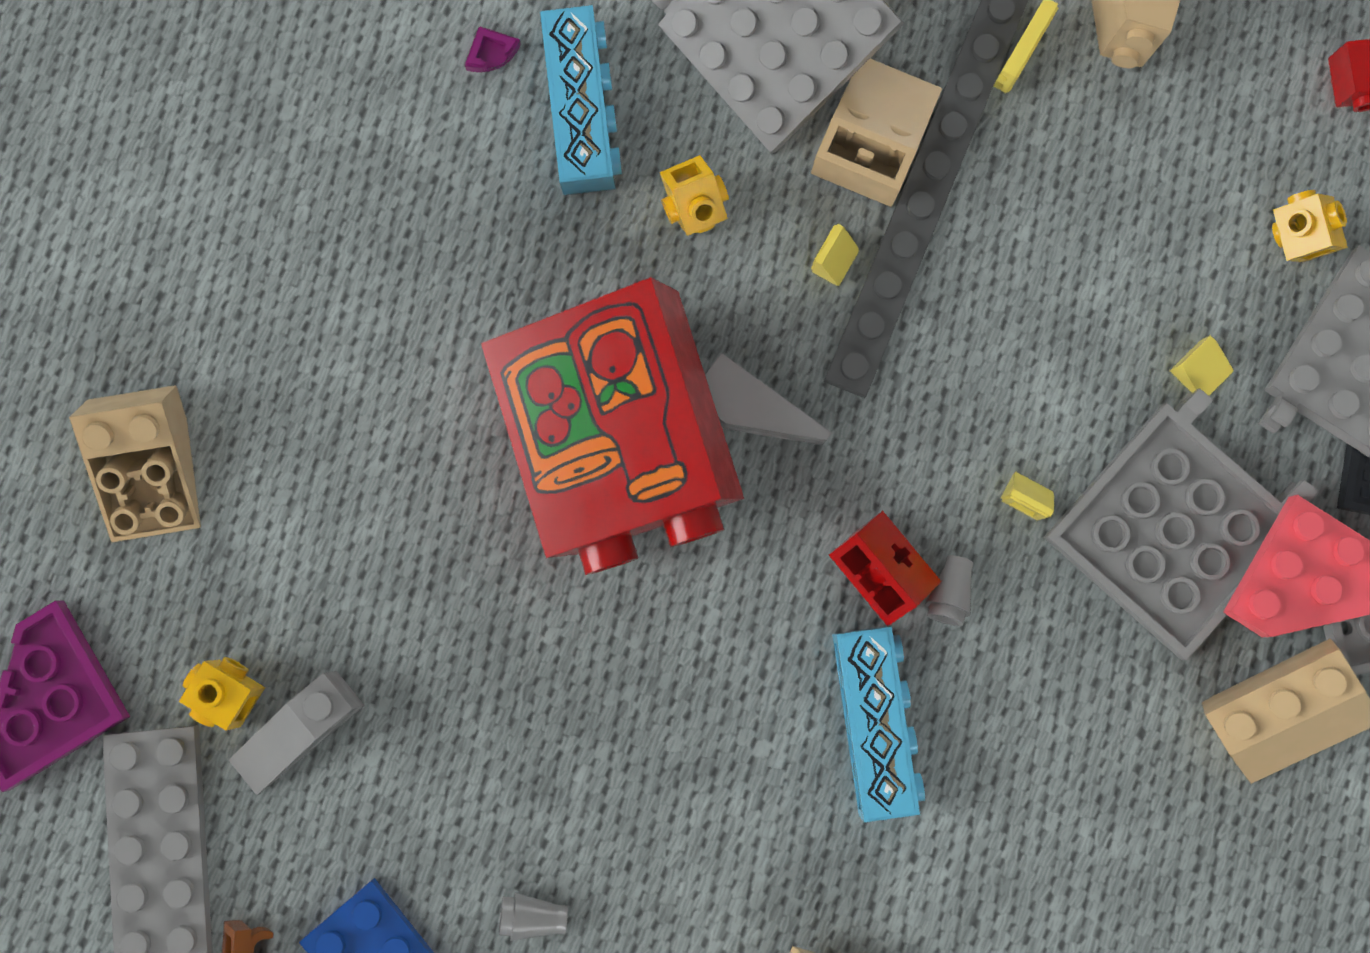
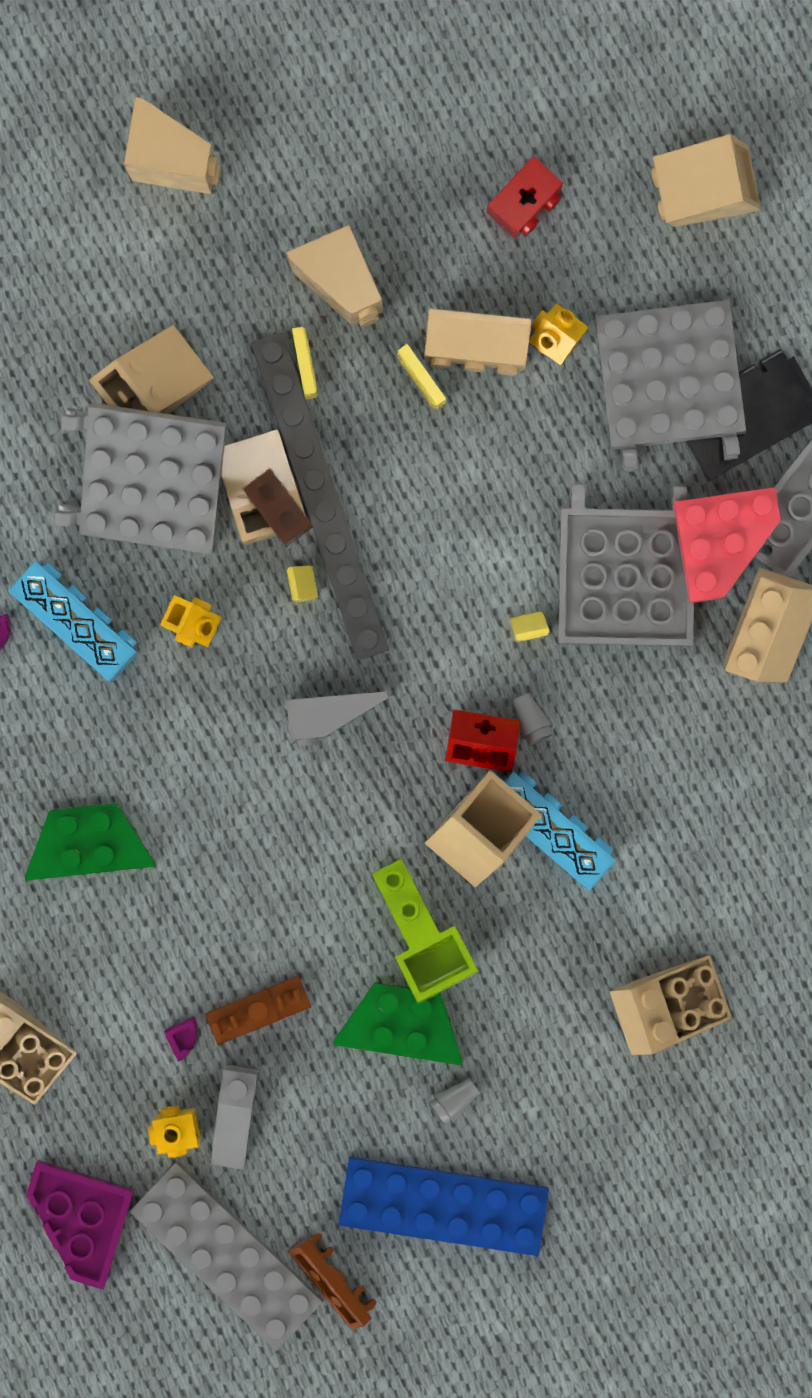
camera: 40 degrees left, 5 degrees up
(316, 604) = (182, 1037): none -> magenta tile
(396, 327) = (87, 843): none -> green wing
(416, 644) = (258, 1010): none -> dark orange plate
(547, 788) = (396, 1024): none -> green wing
(613, 425) = (264, 795): brick -> none
(641, 750) = (433, 958): none -> lime plate
(810, 660) = (483, 829): none -> tan slope
(885, 145) = (278, 507): none -> reddish brown brick
(1131, 156) = (421, 377): none -> light yellow tile
(1203, 367) = (567, 466): light yellow slope -> none
(1226, 162) = (477, 341): none -> tan slope

